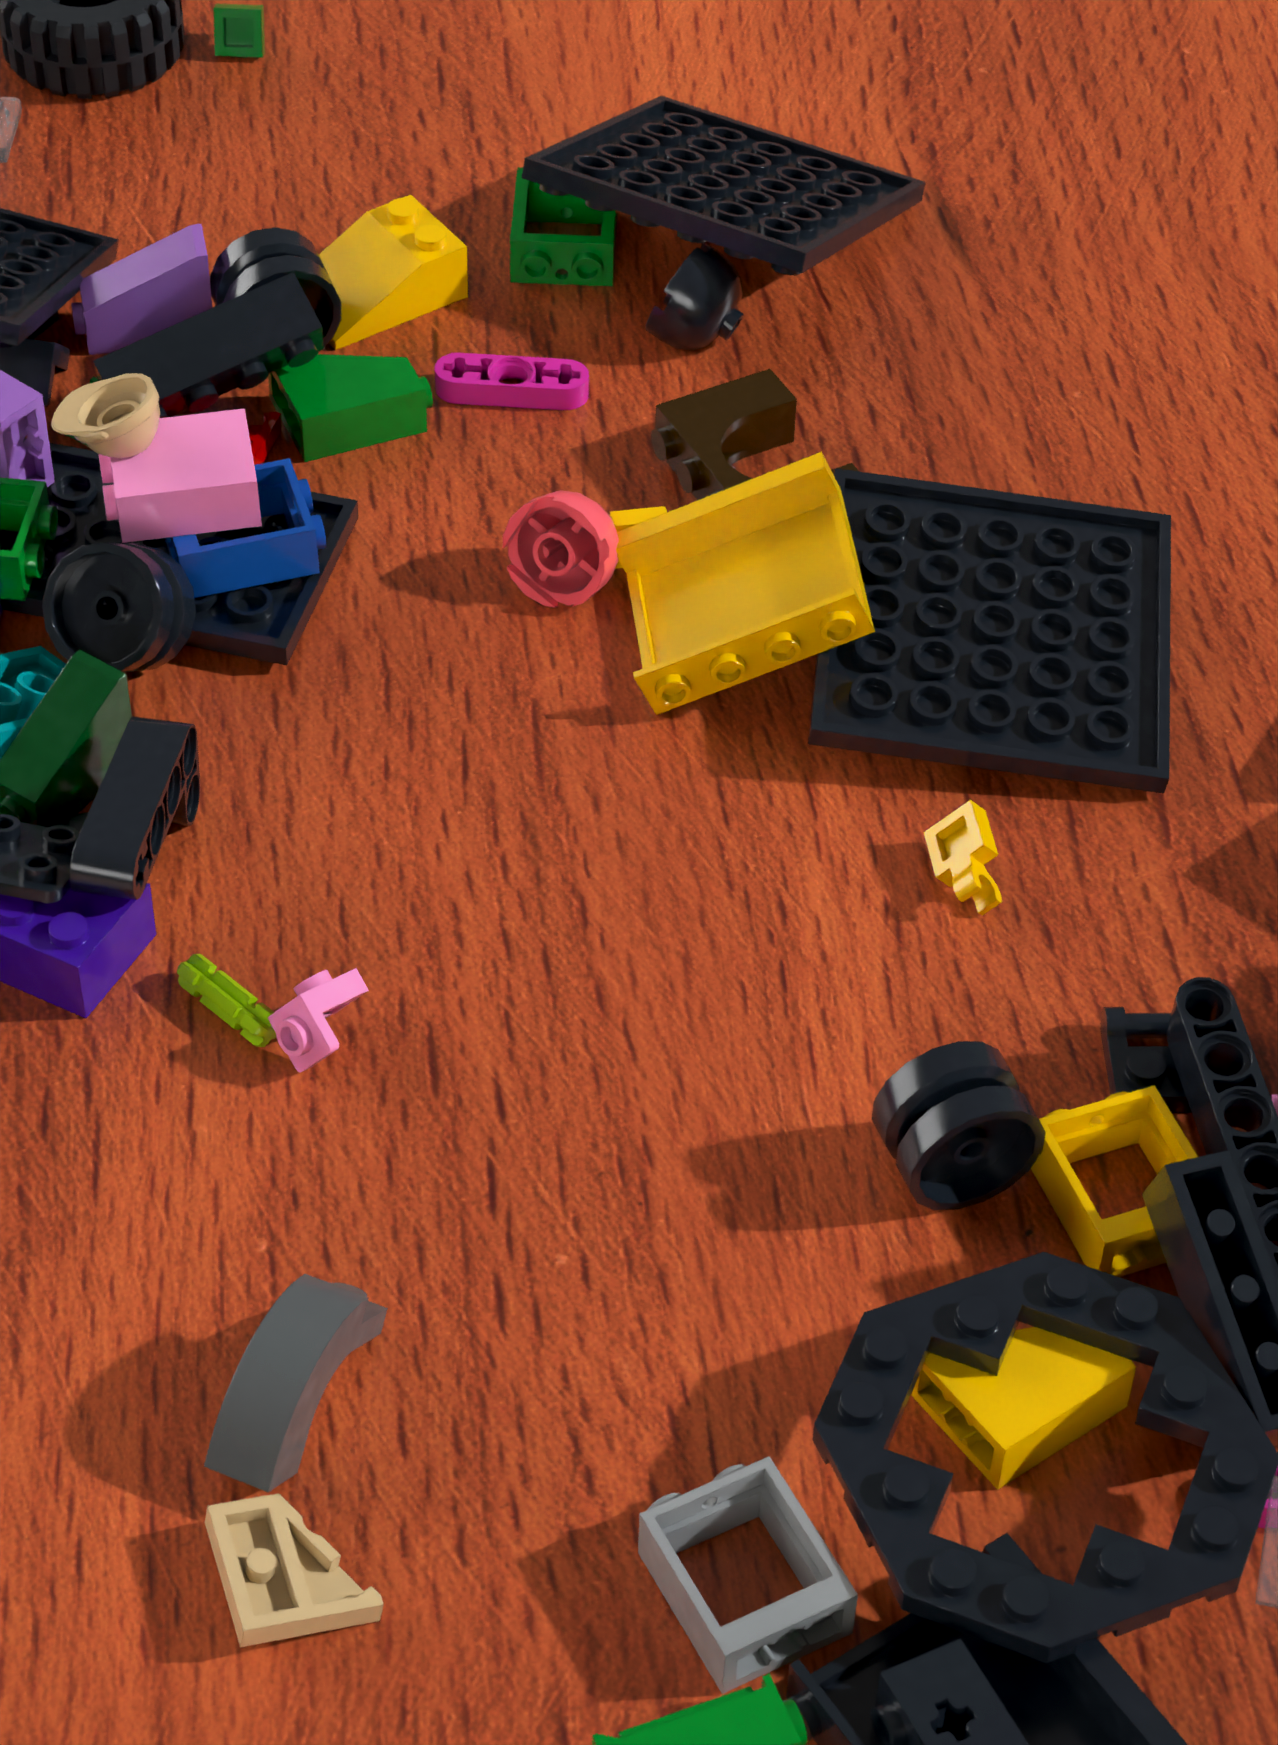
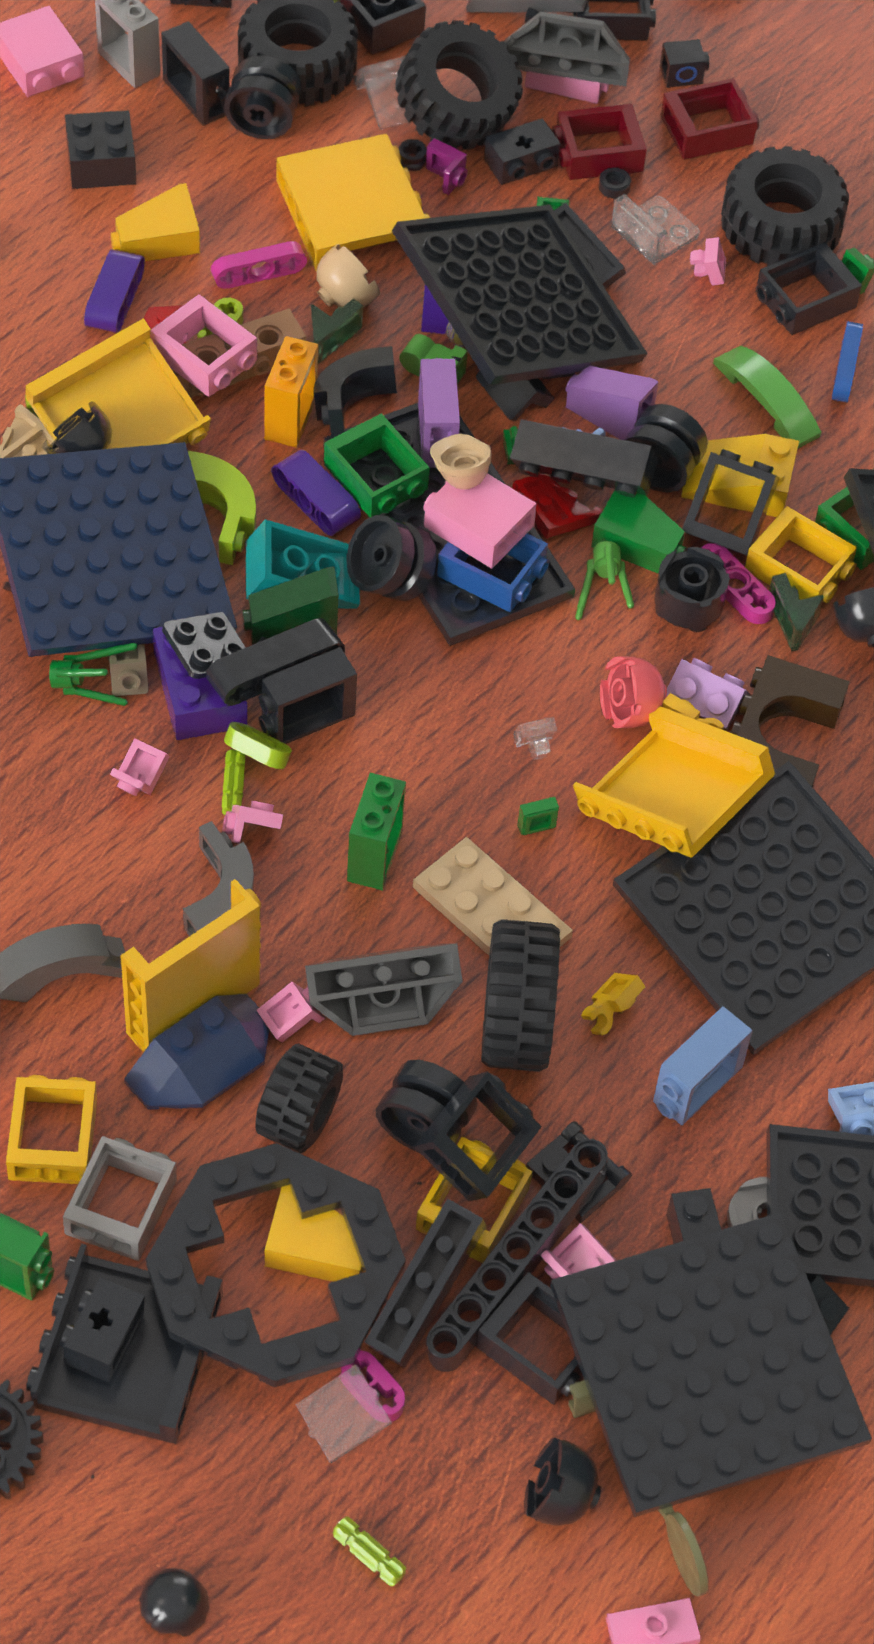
camera: 45 degrees right, 10 degrees up
(71, 116) = (710, 262): none -> bright pink tile
(94, 1074) = (140, 768): none -> bright pink bracket
(197, 46) = (827, 268): none -> black window
(208, 933) = (257, 745): none -> lime beam
(212, 824) = (308, 697): none -> black window
(292, 182) = (772, 391): none -> bright green slope
(343, 111) = (847, 362): none -> blue beam
(351, 455) = (607, 564): none -> bright green plant
(390, 1100) = (229, 864): none -> dark grey arch
(428, 348) = (719, 537): none -> black window
(484, 408) = (691, 588): none -> black brick
(495, 891) = (376, 831): none -> green window
(514, 1237) = (207, 964): none -> yellow panel
(518, 673) = (536, 736): none -> clear tile
(549, 281) = (813, 538): none -> yellow window
(594, 1635) = (49, 1164): none -> yellow window
(615, 363) = (794, 615): none -> clear green slope
(616, 1328) = (201, 1055): none -> dark blue wedge
(631, 745) = (538, 816): none -> green tile
(642, 483) = (707, 692): none -> lavender bracket
(645, 1177) = (288, 1011): none -> bright pink bracket
(706, 882) = (478, 892): none -> tan plate
(724, 1045) = (385, 987): none -> dark grey wedge
(813, 1243) = (299, 1098): none -> black tyre
(912, 903) = (521, 995): none -> black tyre
(1128, 1117) = (453, 1162): none -> black window
(1159, 829) = (701, 1066): none -> medium blue window

